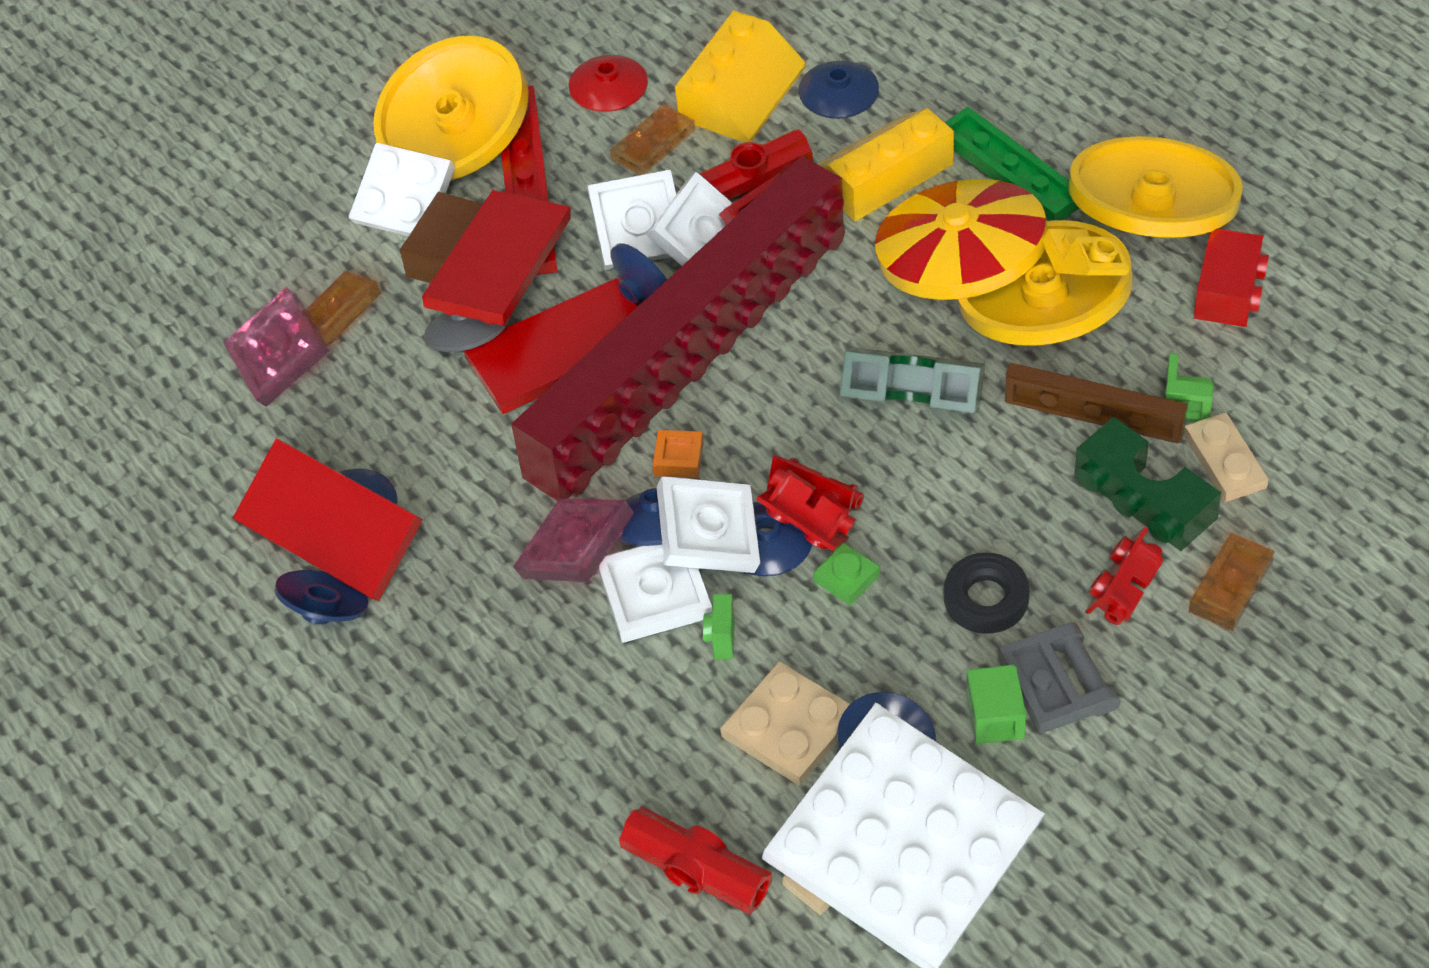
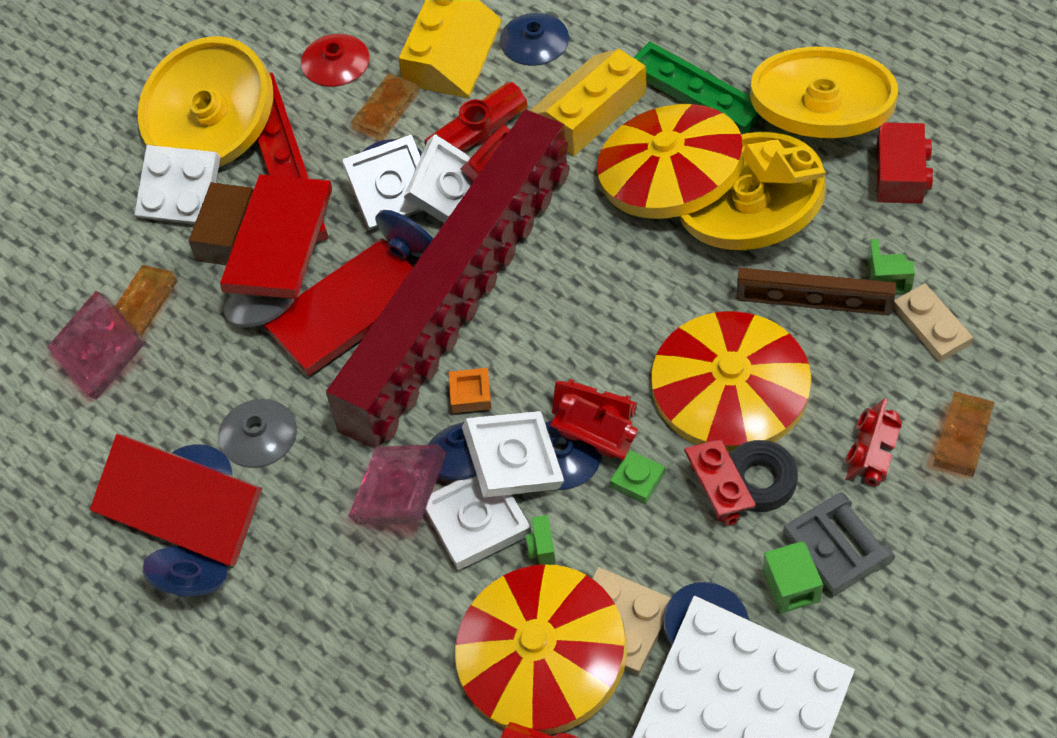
camera: 10 degrees left, 5 degrees up
(437, 478) = (262, 445): none -> dark grey dish
(695, 736) = (541, 648): none -> dish
(911, 377) = (641, 292): arch -> none
(937, 589) = (720, 480): none -> hinge
(977, 486) = (731, 379): none -> dish
(1170, 508) = (898, 377): dark green arch -> none

